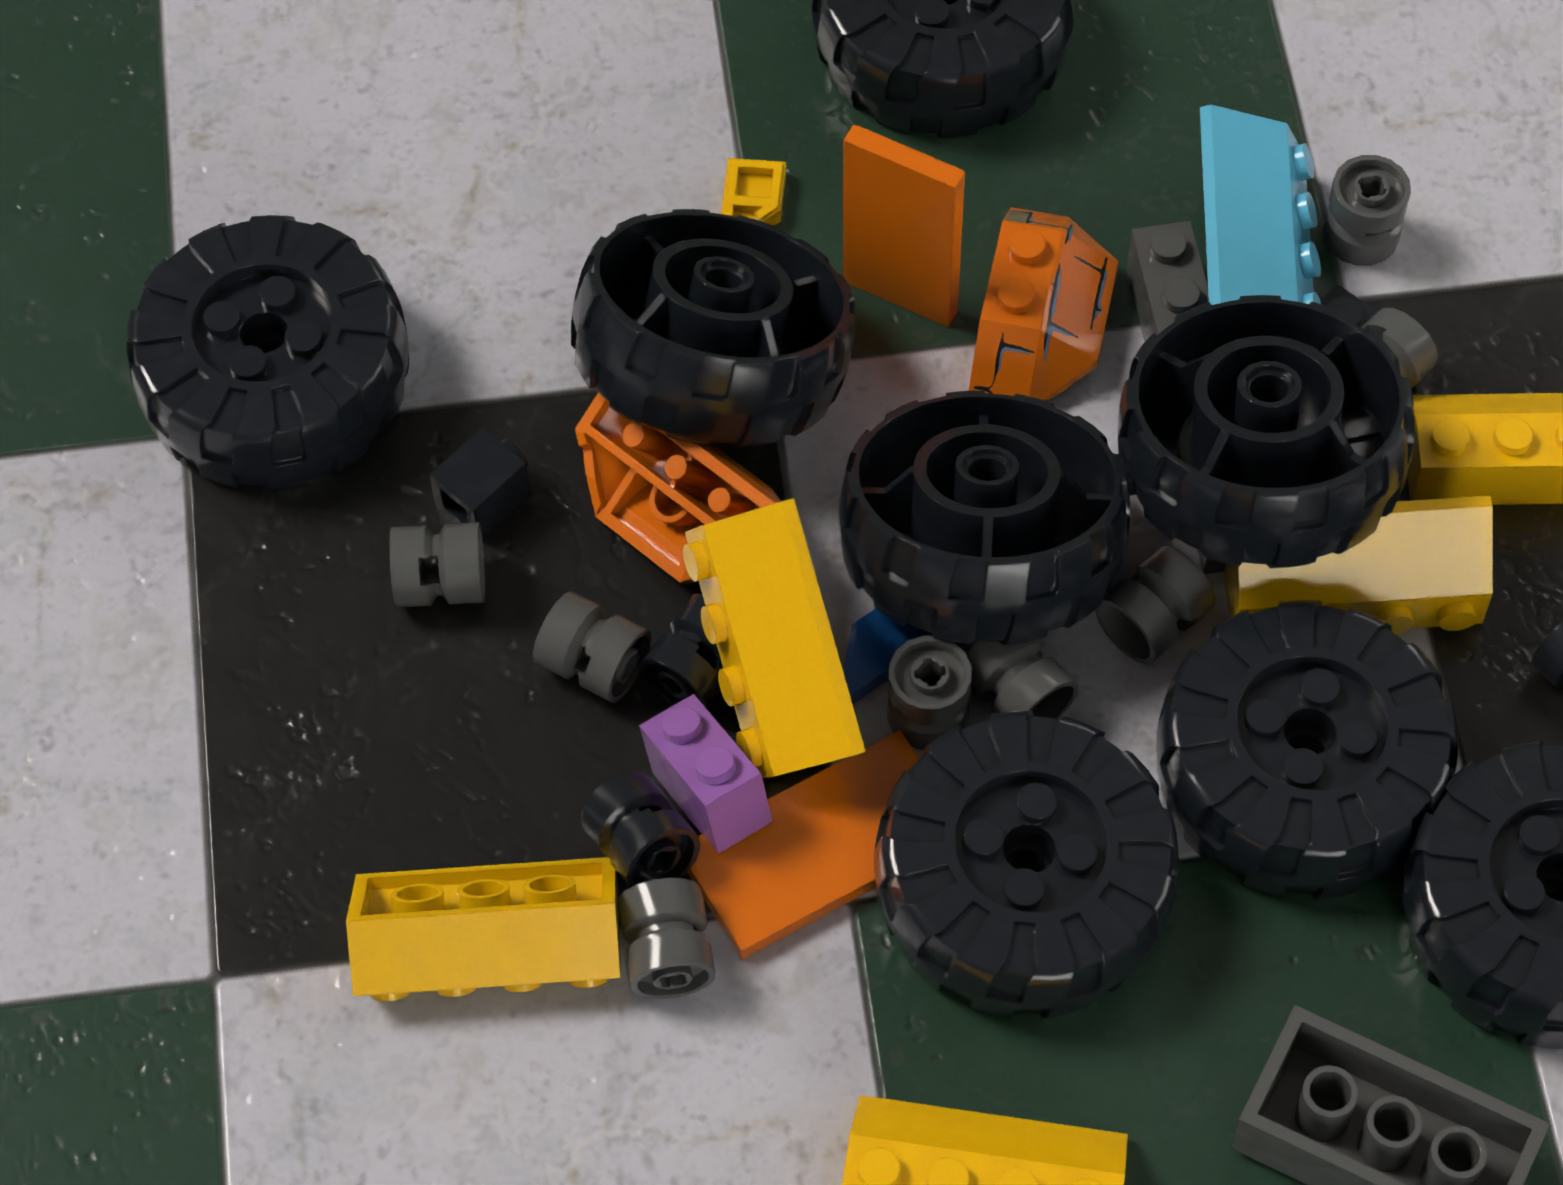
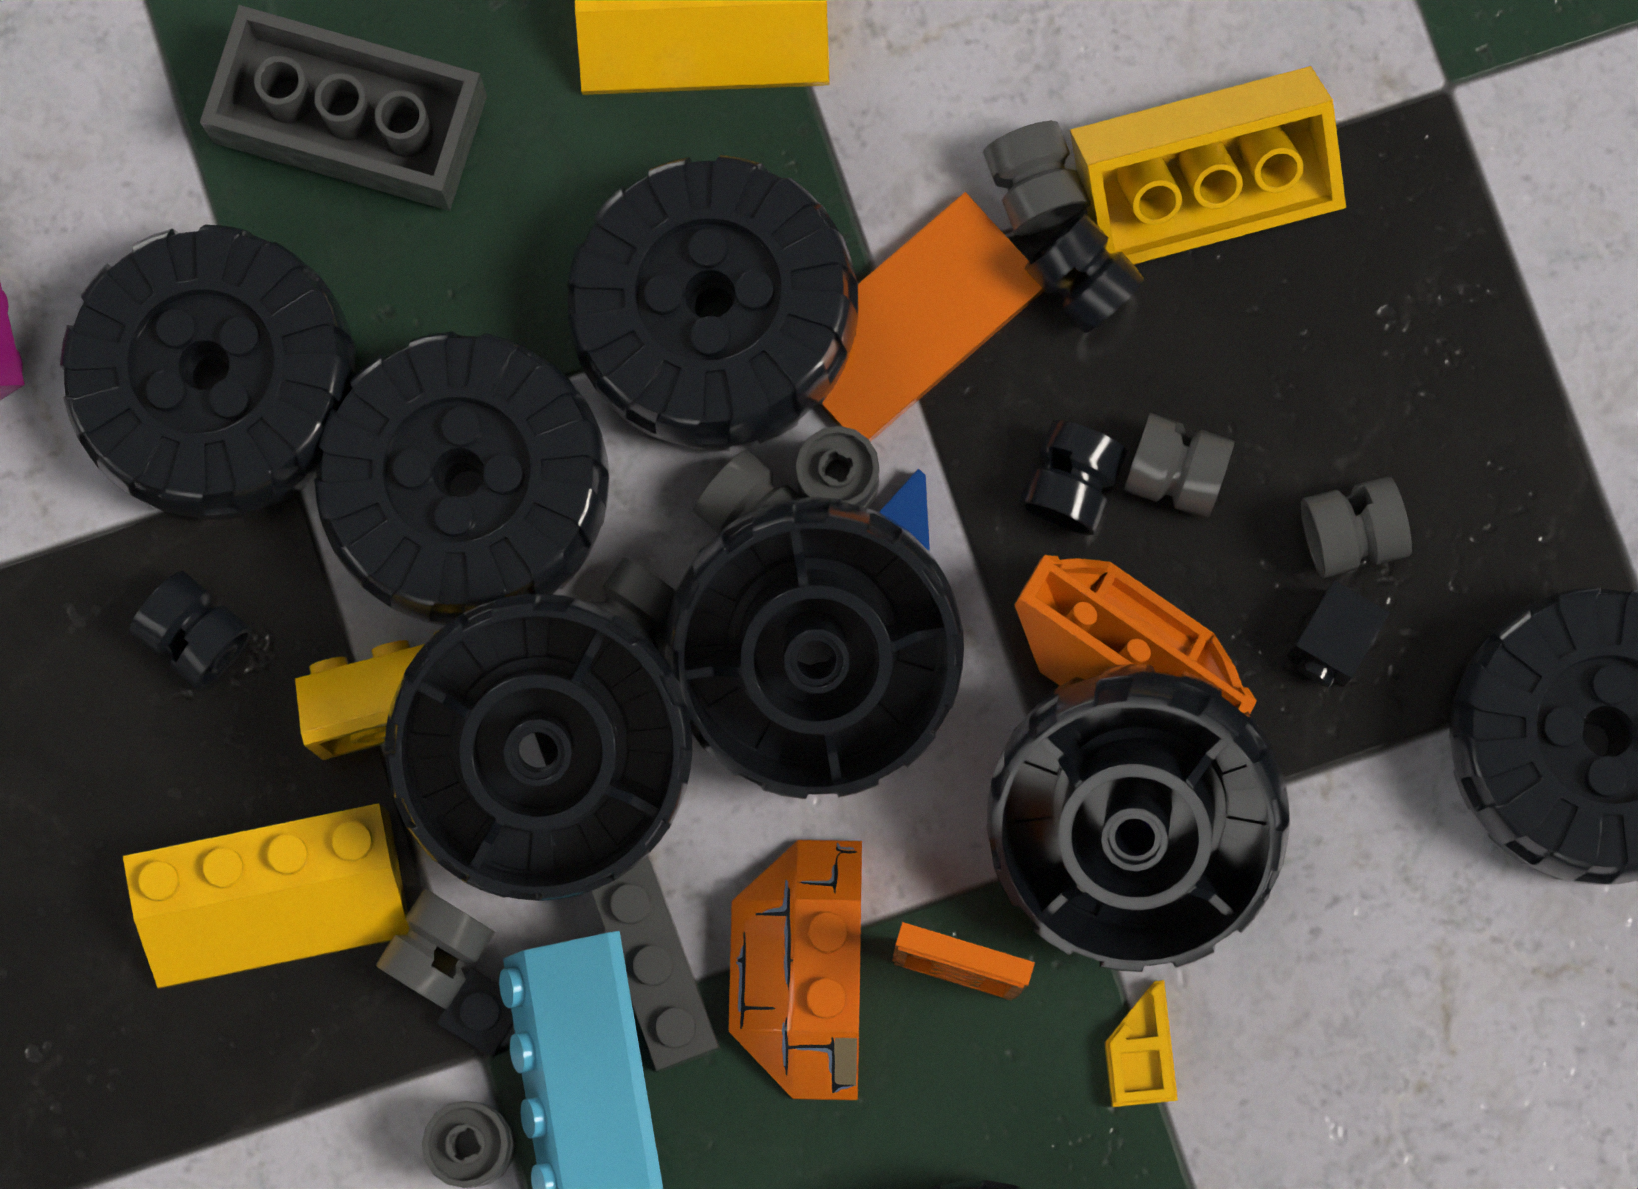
camera: 170 degrees right, 20 degrees up
(706, 773) = (1036, 343): medium lavender brick -> none
(773, 640) = (1000, 457): yellow slope -> none

